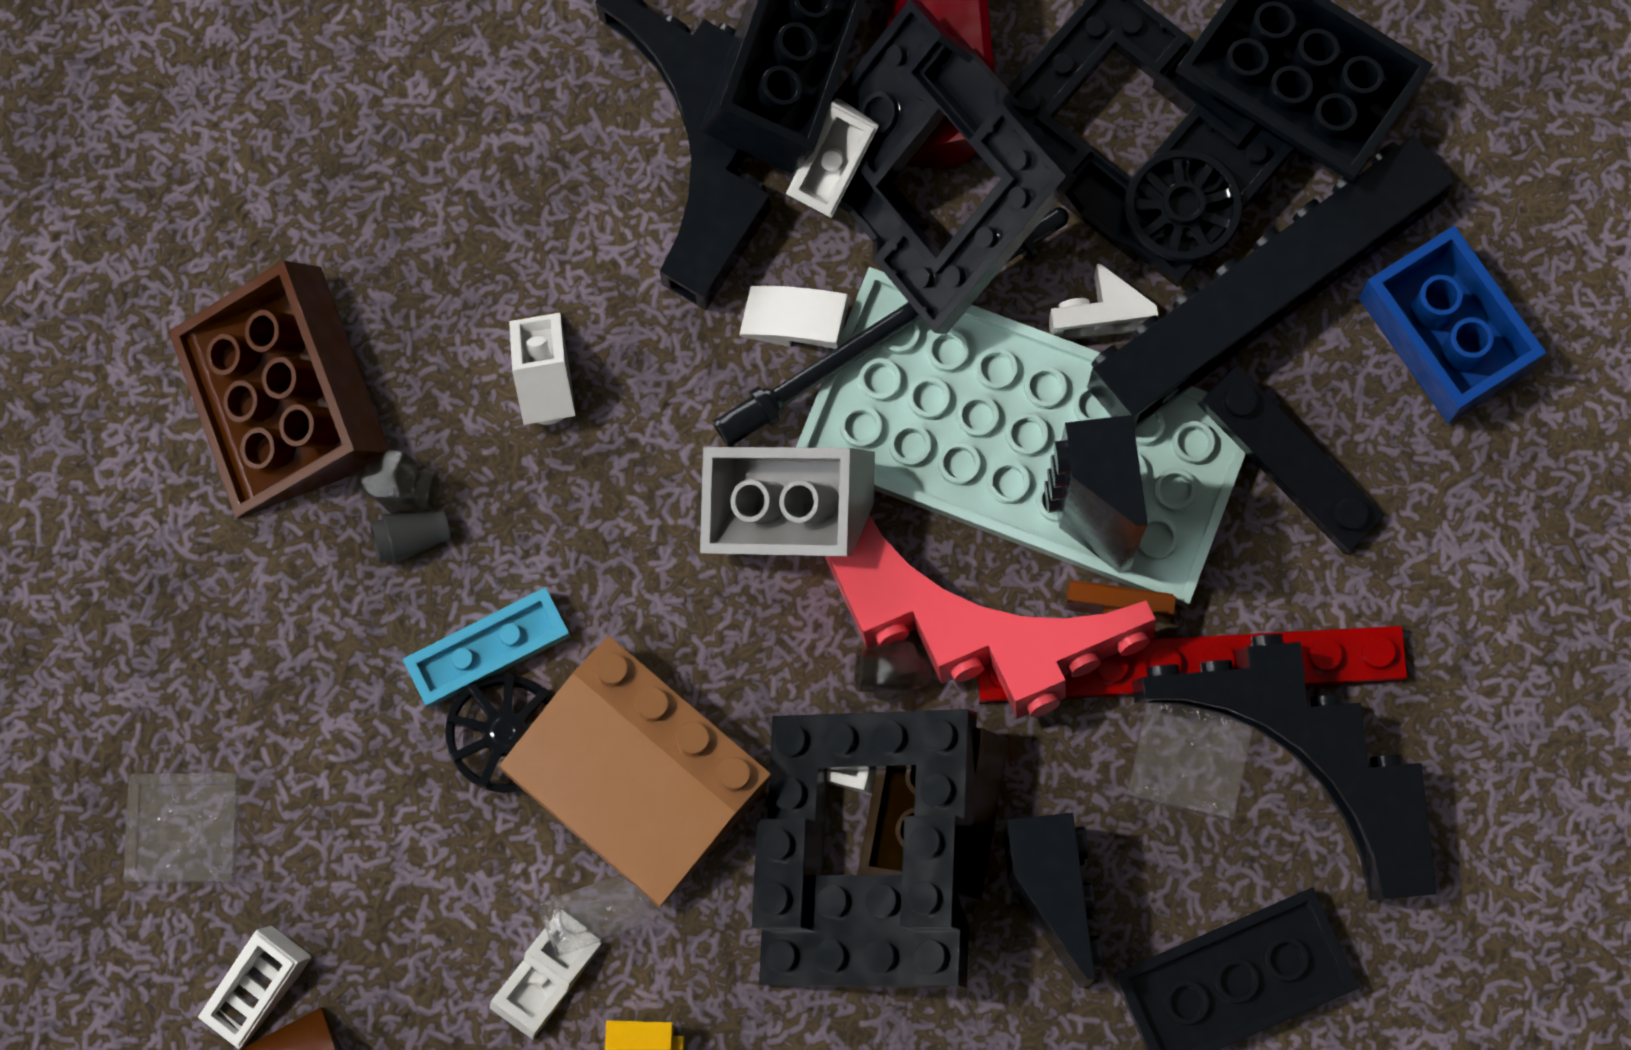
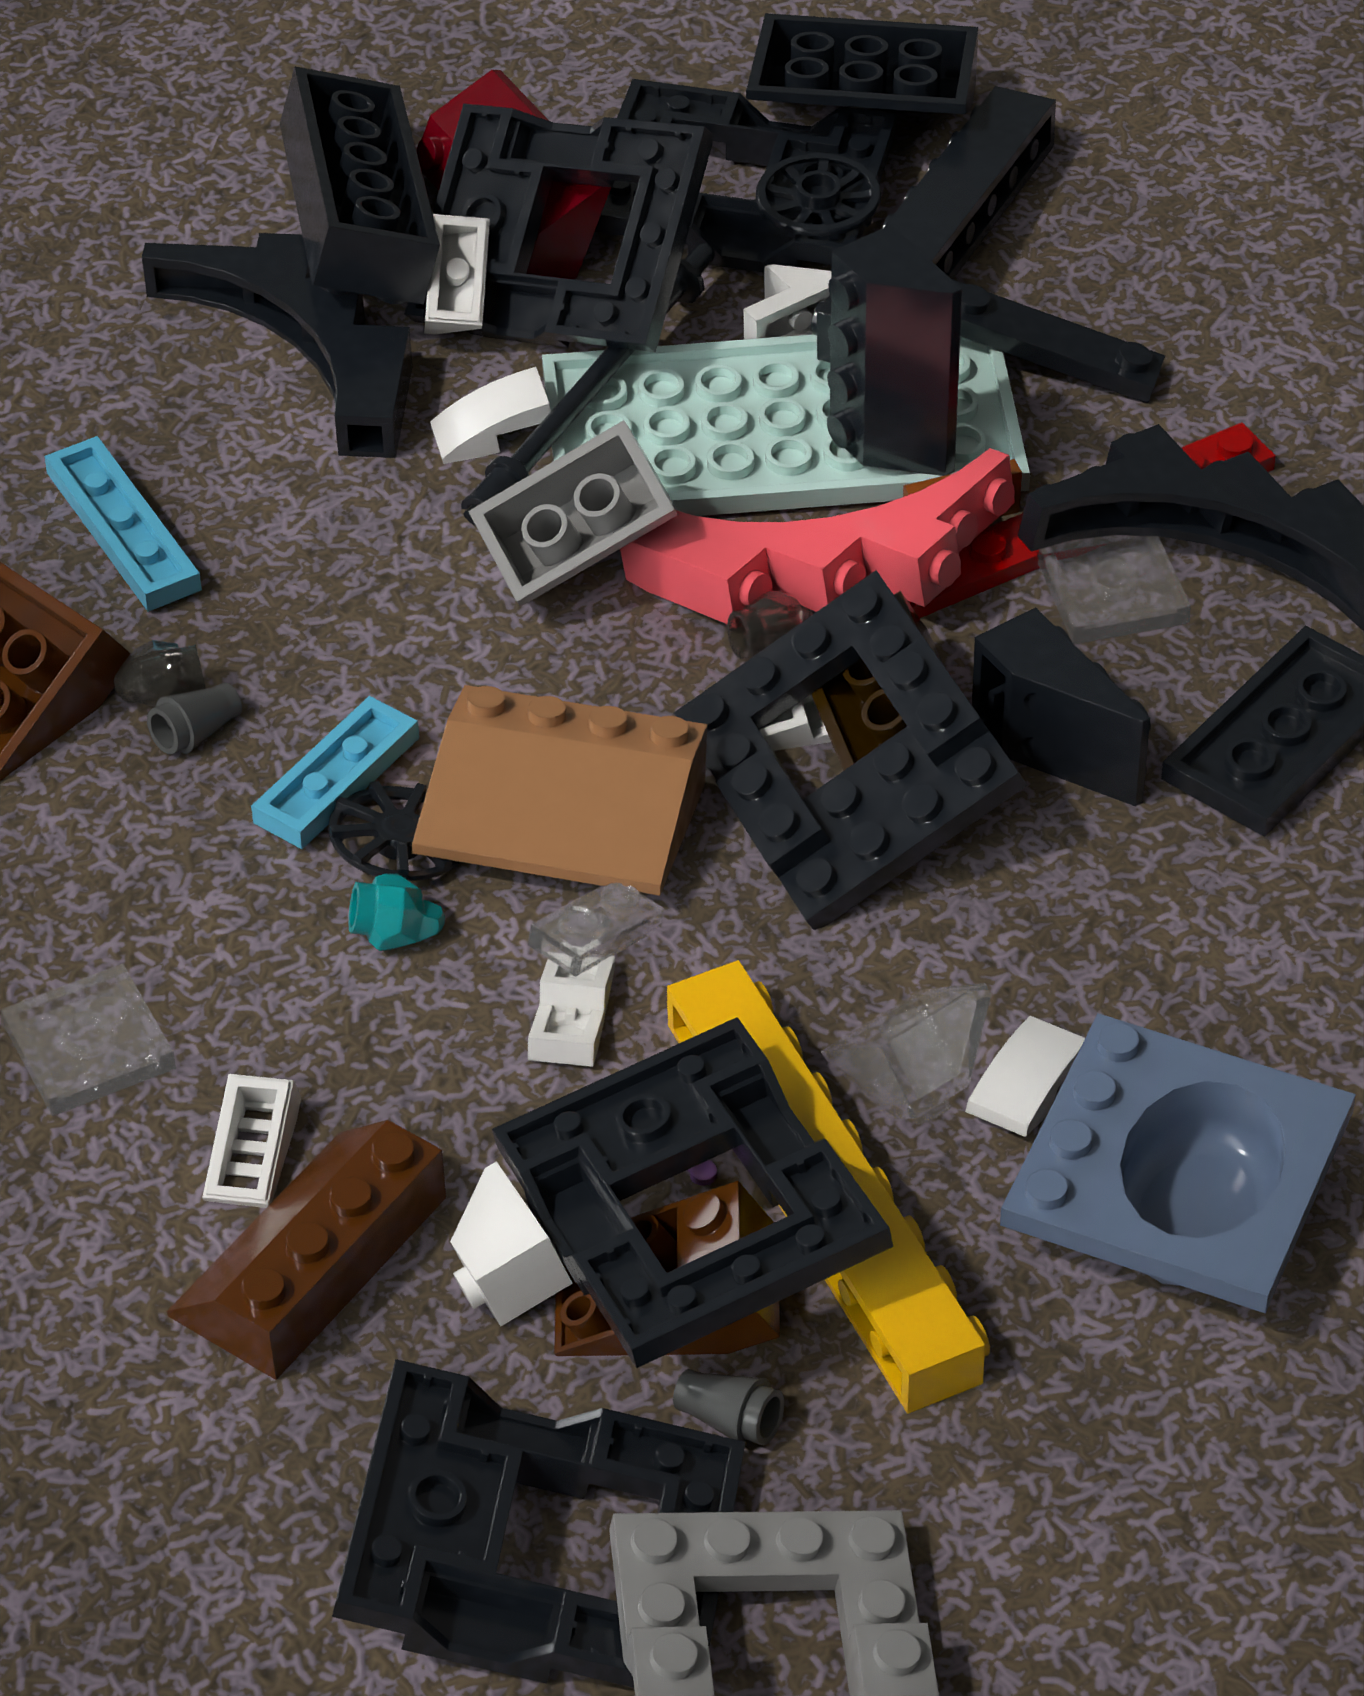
camera: 30 degrees left, 30 degrees down
(452, 289) = (123, 523): none -> medium azure plate
(456, 822) = (392, 912): none -> teal rock
(541, 369) = (261, 543): white slope -> none
(1451, 324) = (1126, 198): blue brick -> none

